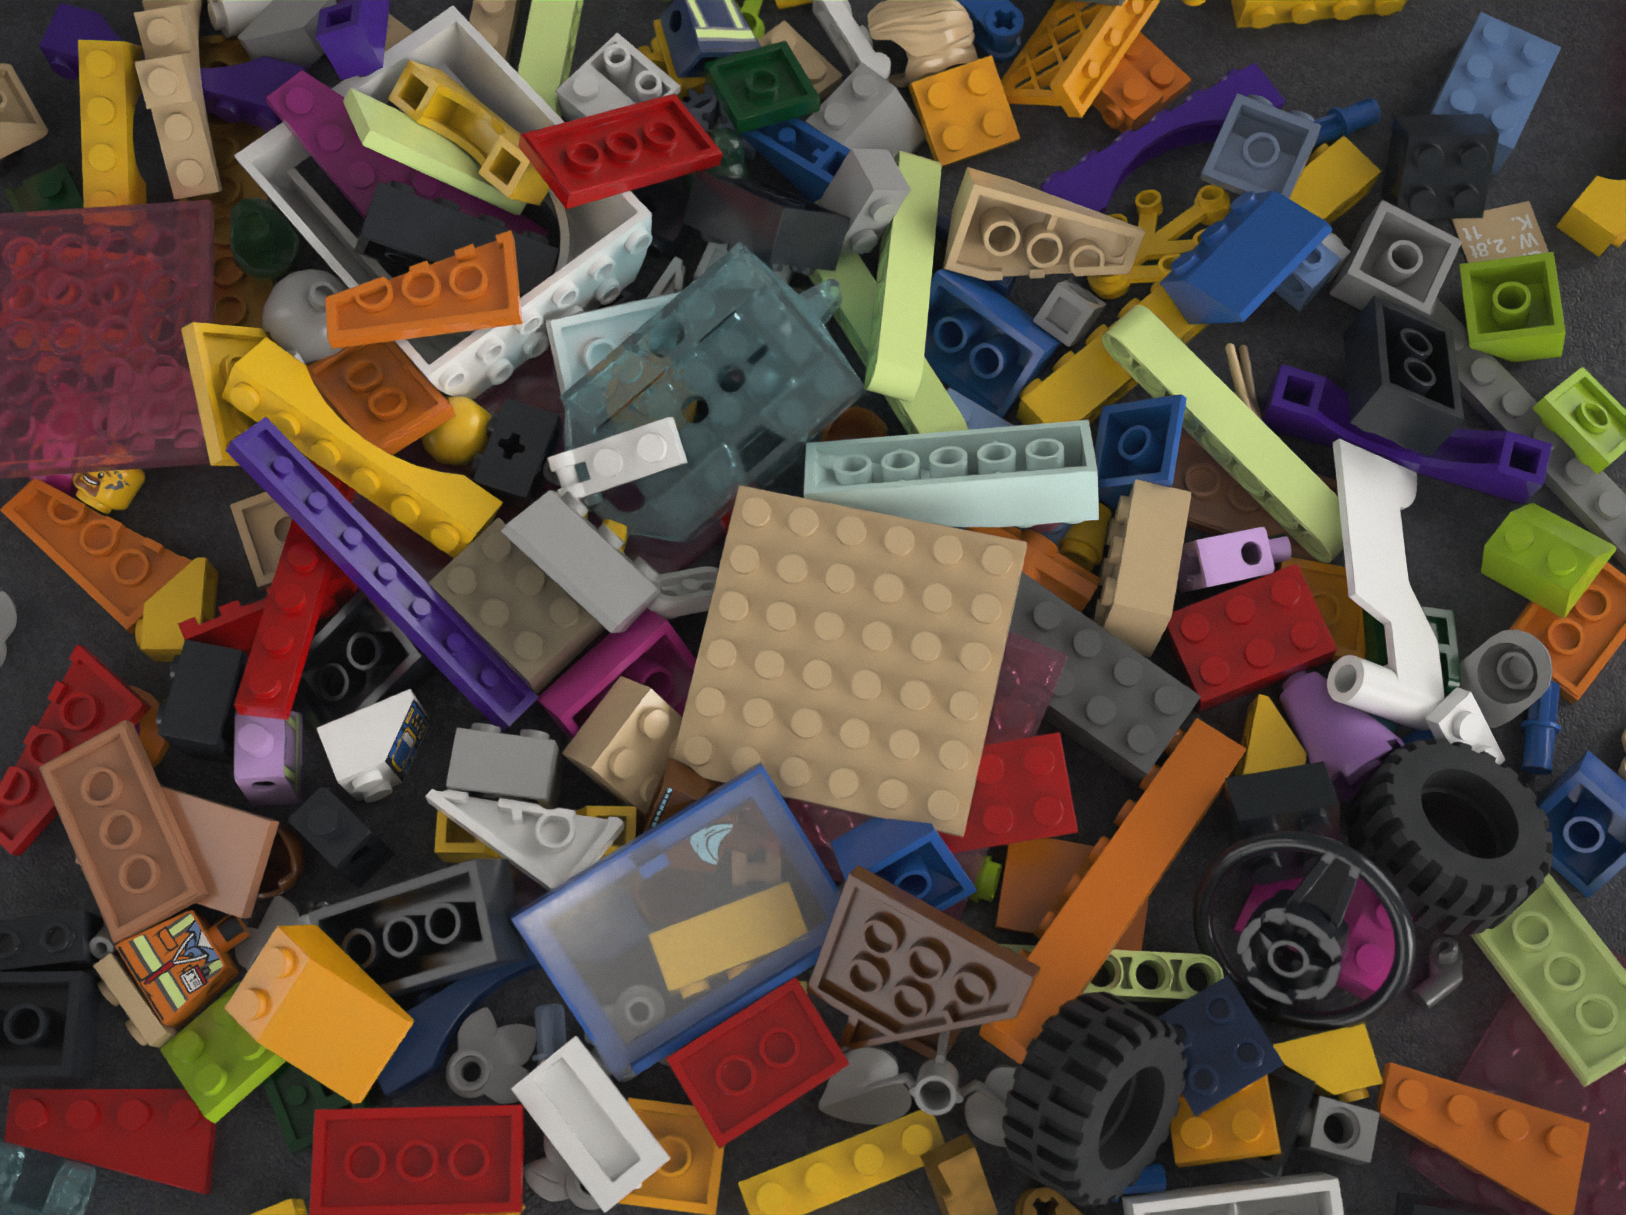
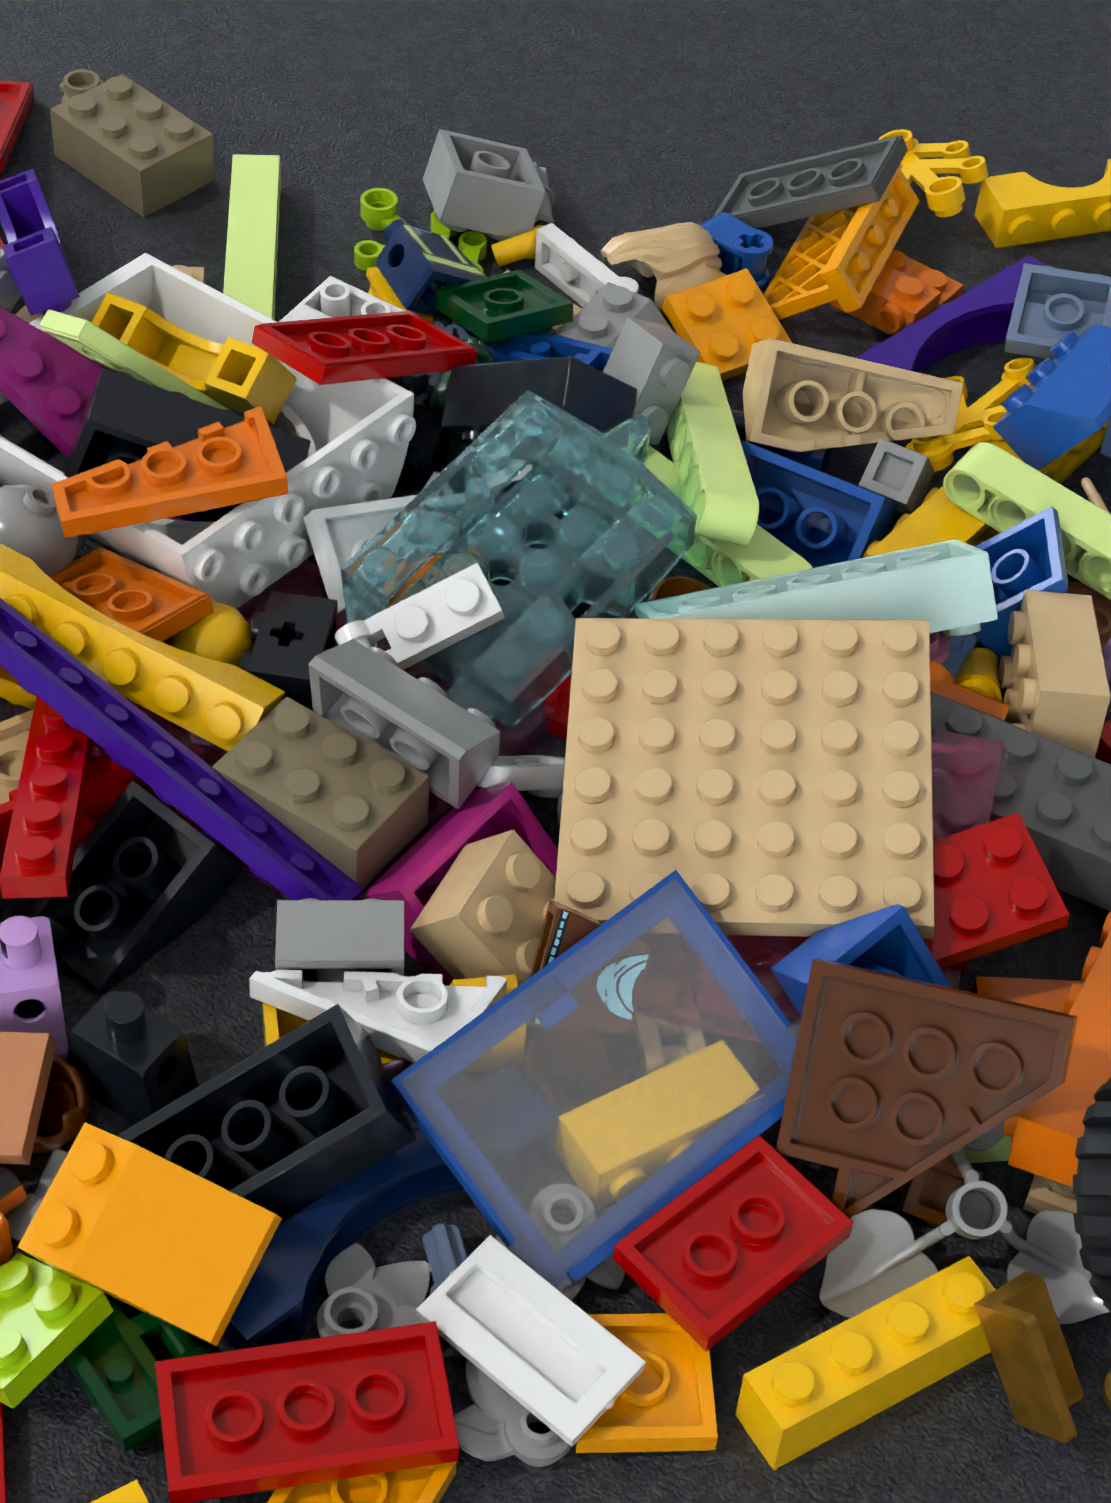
camera: 10 degrees left, 25 degrees down
(375, 745) = (166, 948): white slope -> none

